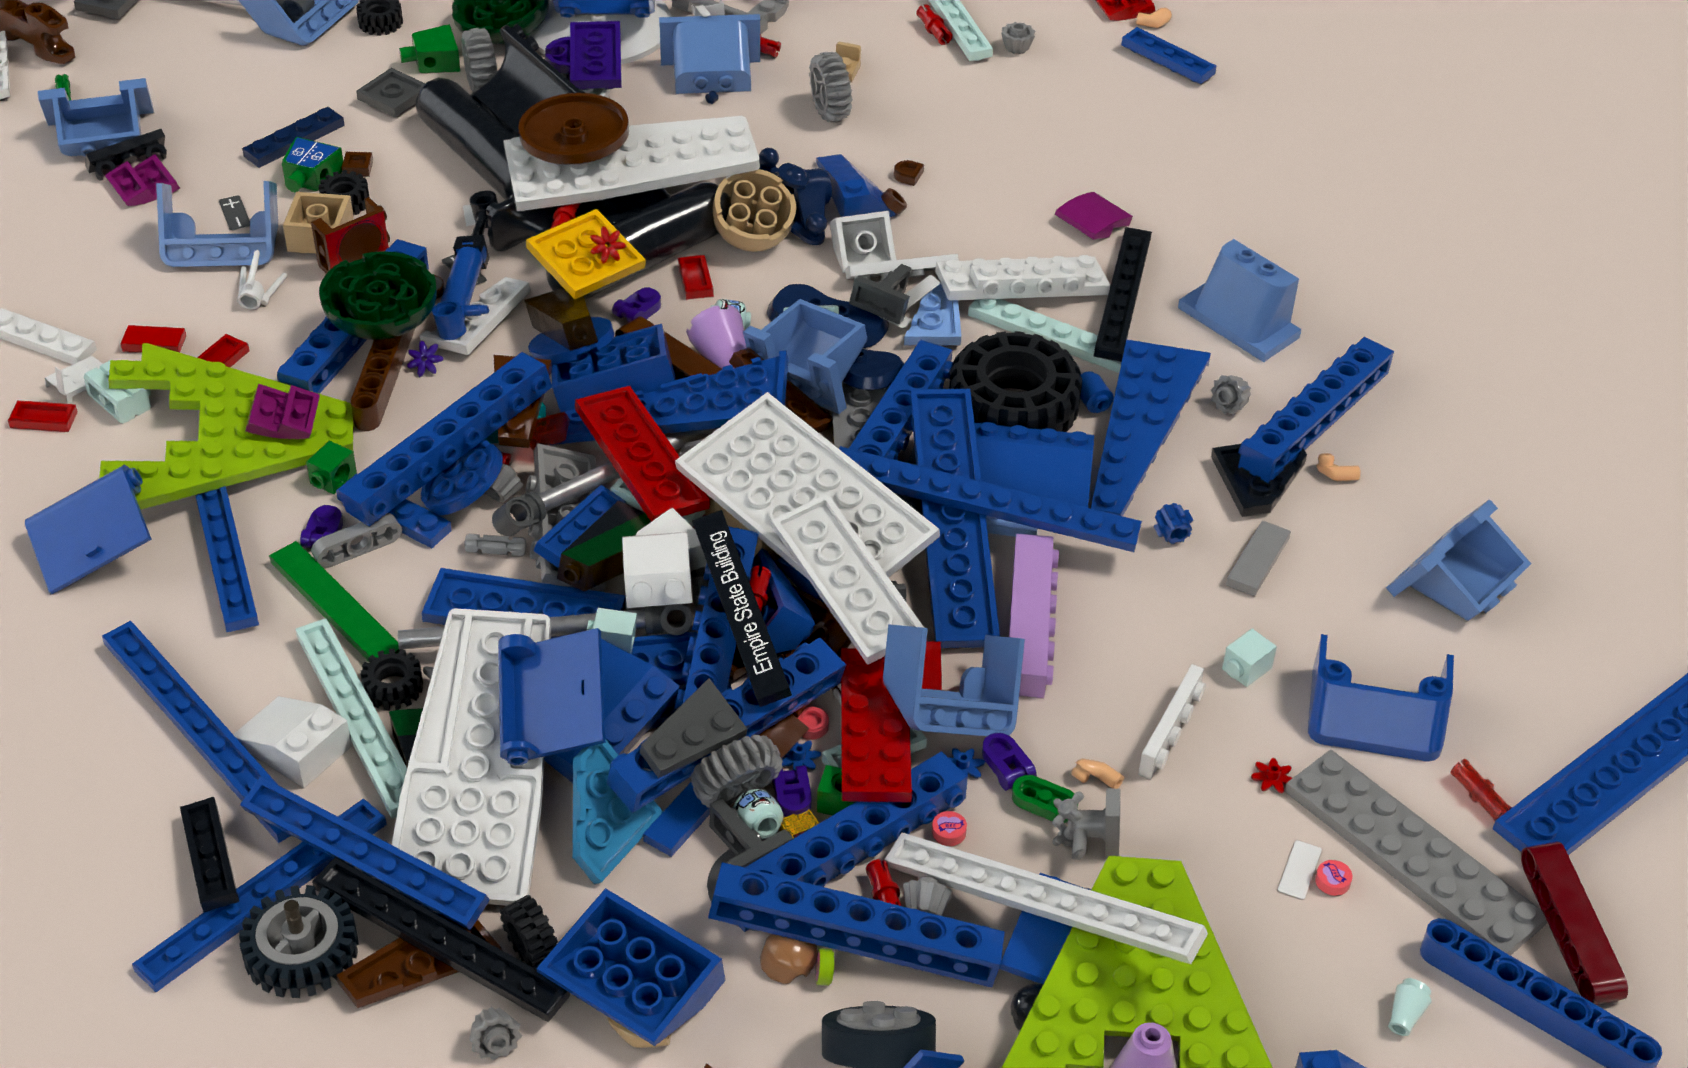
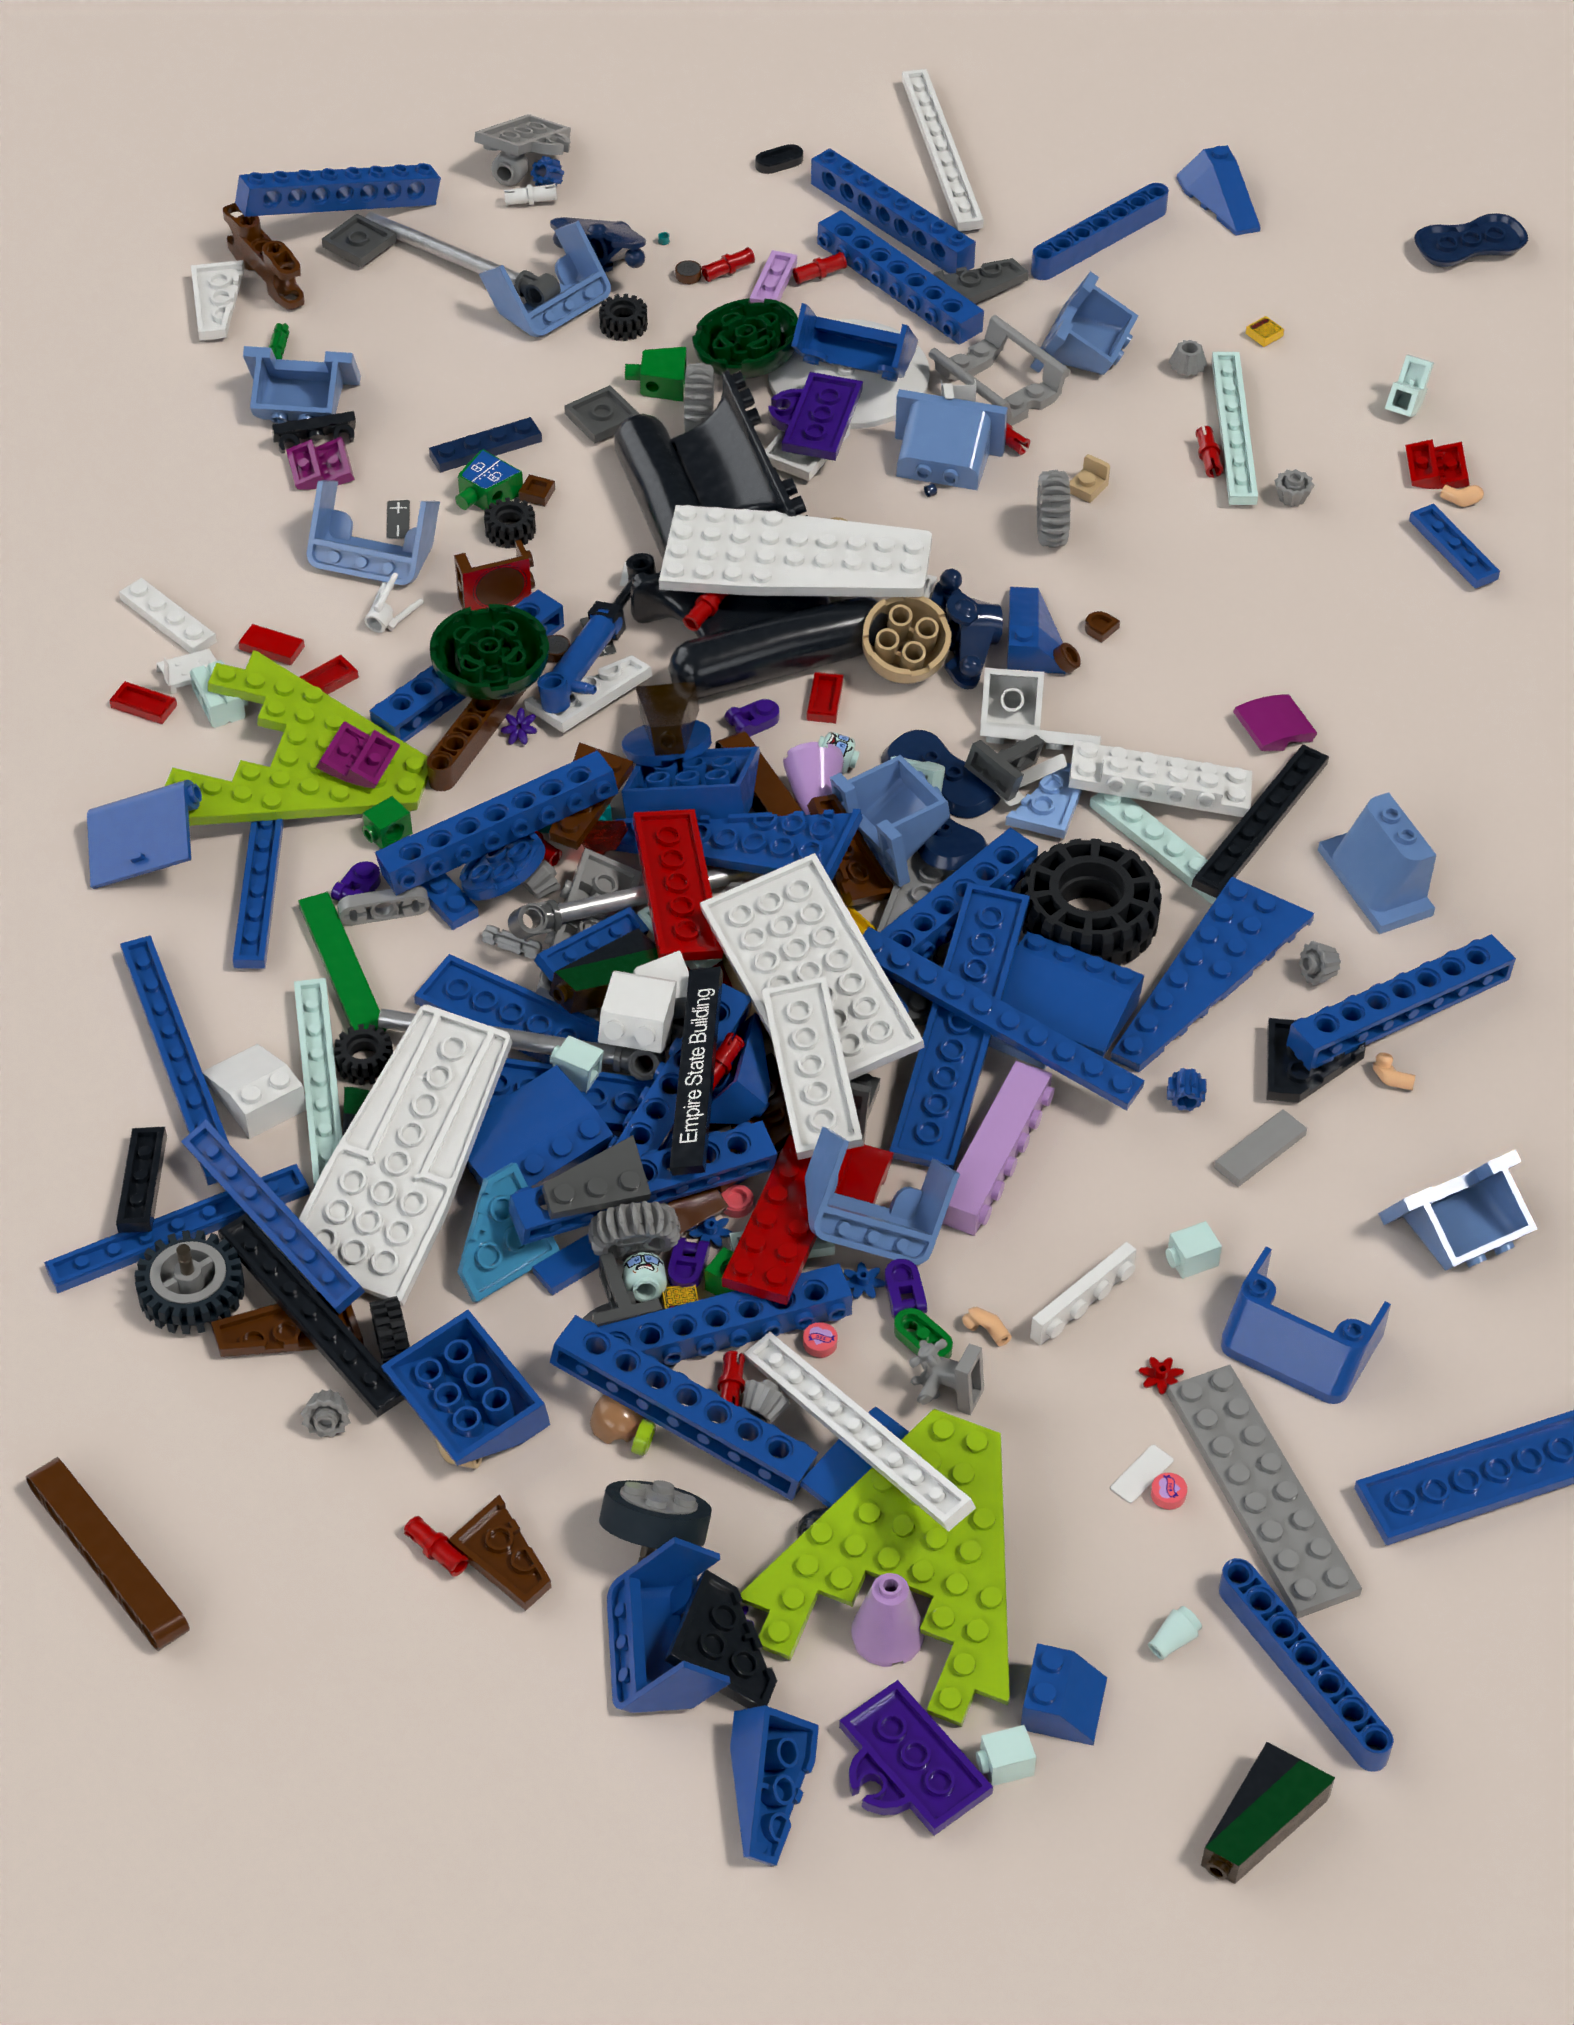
camera: 20 degrees right, 5 degrees up
(311, 206) = (478, 540): tan brick -> none
(544, 695) = (481, 1112): blue door -> none
(567, 255) = (706, 654): yellow plate -> none
(573, 128) = (742, 512): reddish brown dish -> none
(610, 240) = (731, 646): red plant -> none
(1095, 393) = (1174, 925): blue brick -> none
(1480, 789) = (1360, 1445): clear red pin -> none
(1574, 923) = (1377, 1601): dark red beam -> none

